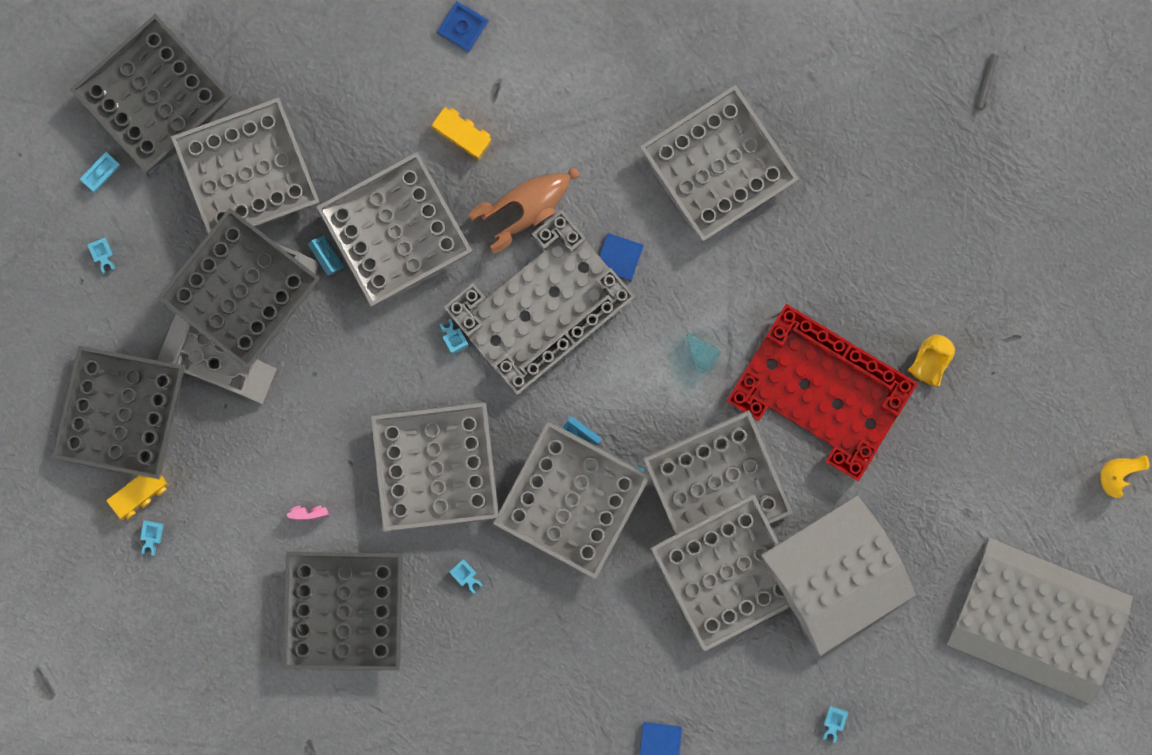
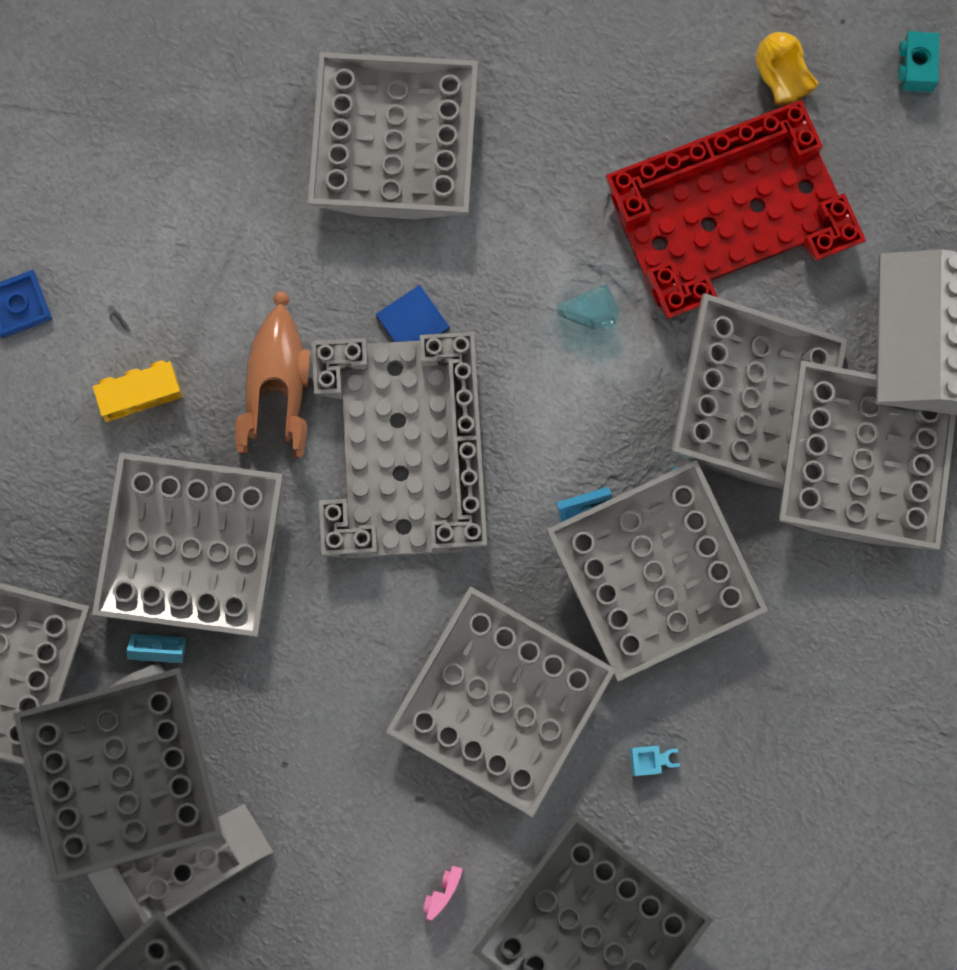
camera: 55 degrees left, 5 degrees down
(454, 339) = (367, 572): medium azure plate -> none
(990, 444) = (923, 47): none -> teal brick

